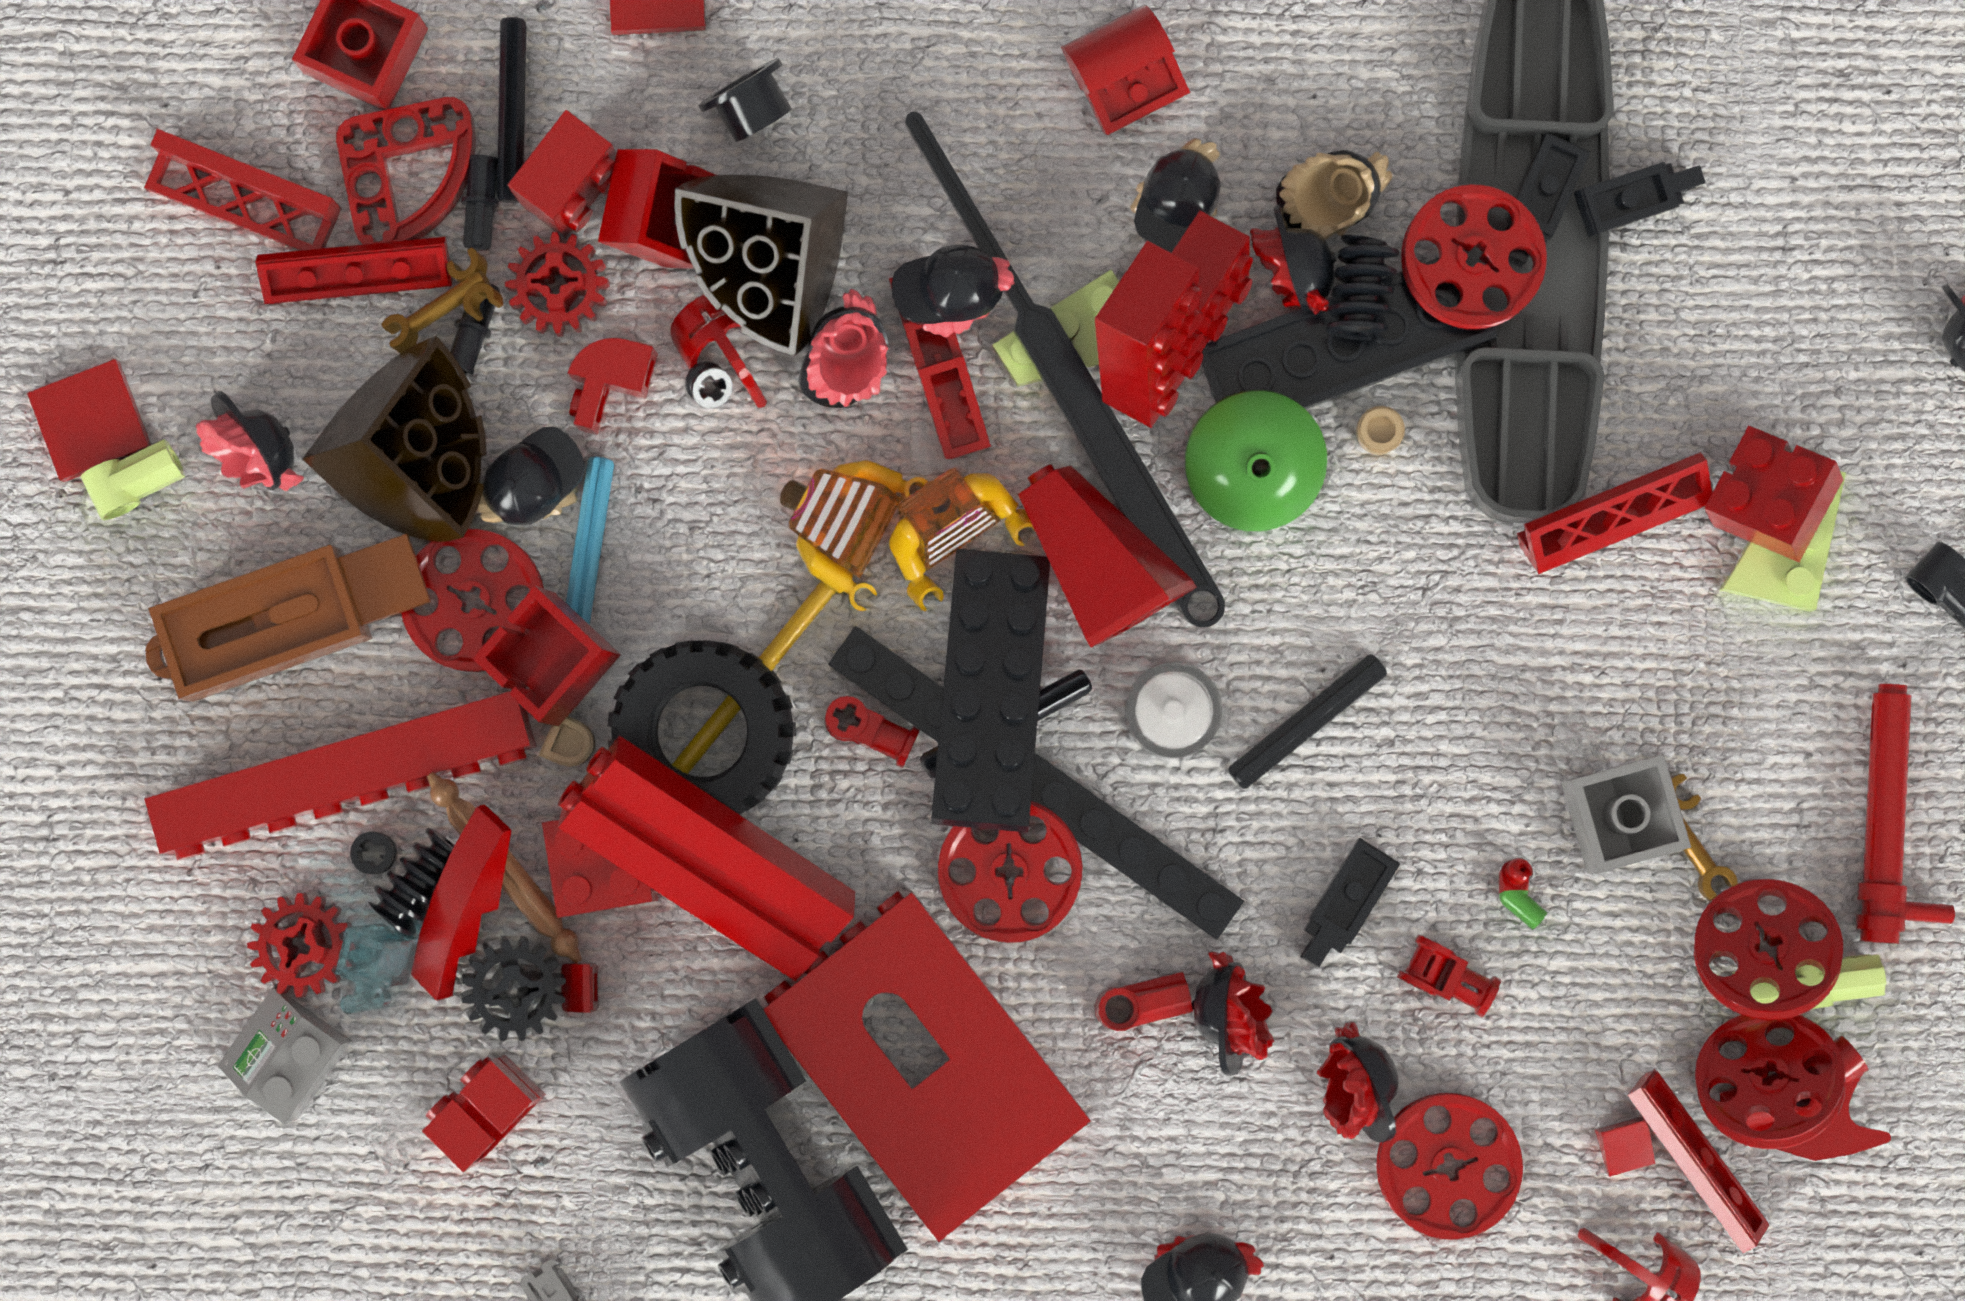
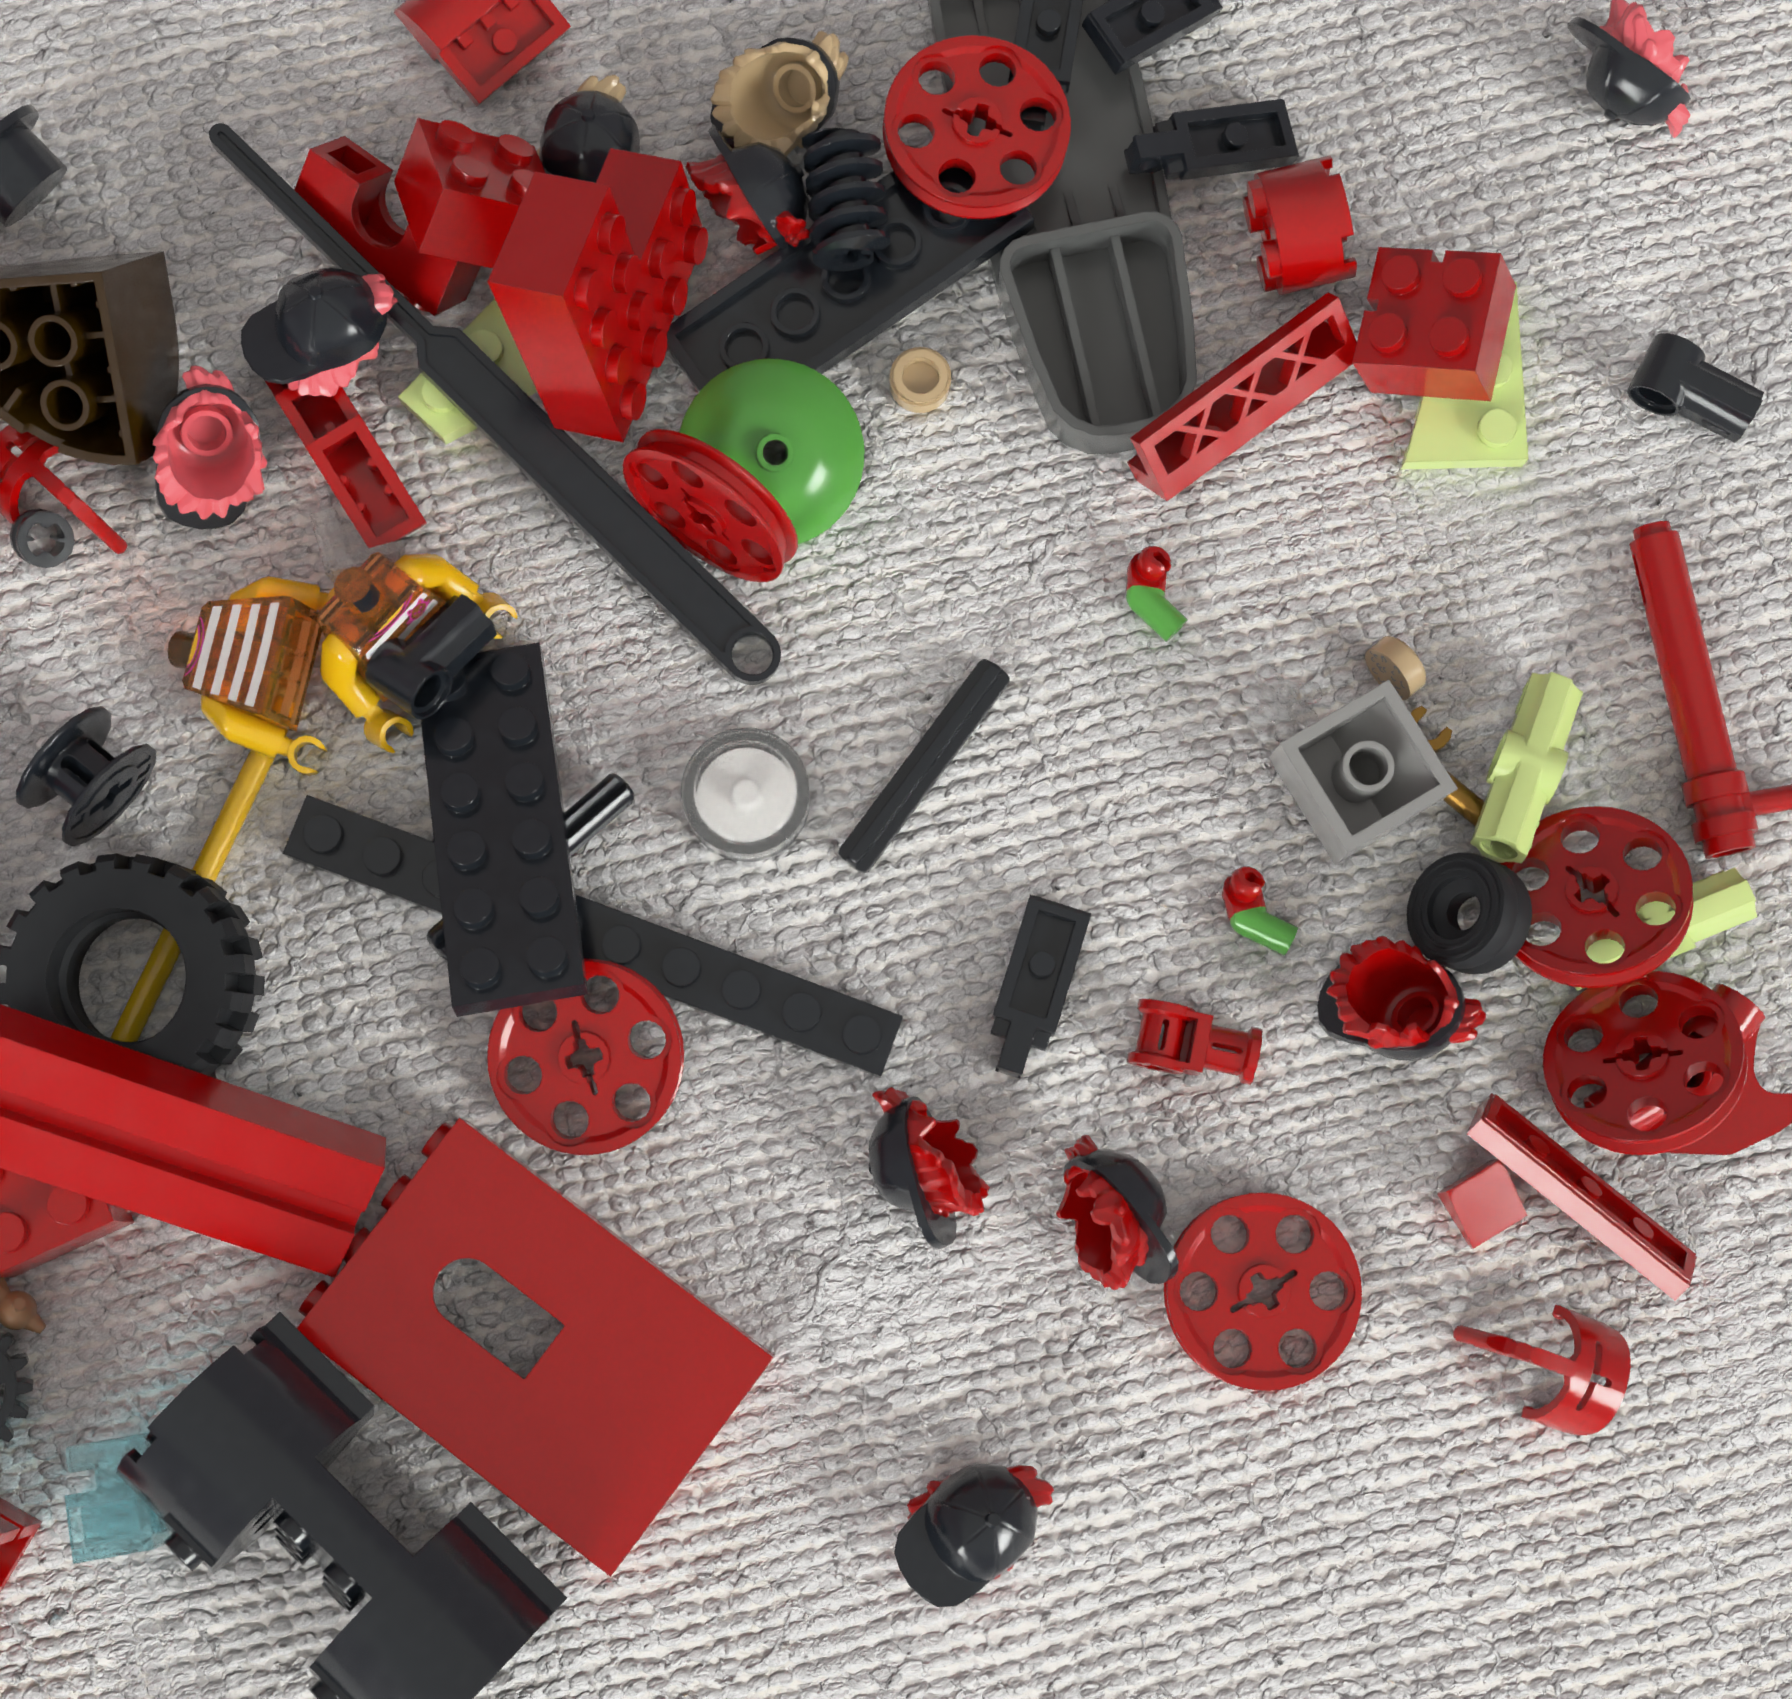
camera: 20 degrees left, 5 degrees down
(580, 987) = (54, 1364): red slope -> none
(603, 1105) = (112, 1516): none -> clear light blue brick
(704, 574) = (85, 775): none -> black piece
(873, 731) = (357, 922): red connector -> none
(963, 559) = (421, 670): none -> black piece
(1035, 250) = (349, 193): none -> red arch
(1089, 217) = (463, 189): none -> red brick
(1098, 555) = (599, 624): red slope -> none
(1148, 1001) = (812, 1180): red piece -> none
(1204, 496) = (710, 505): none -> red wedge
(1505, 634) = (1147, 592): none -> arm
(1603, 987) = (1396, 1002): none -> red hair
(1651, 308) = (1216, 142): none -> black hinge
(1672, 740) = (1396, 662): none -> tan tile
(1695, 393) = (1301, 226): none -> red brick
(1695, 952) = (1502, 918): none -> black tyre
(1747, 841) = (1526, 767): none -> yellowish green piece

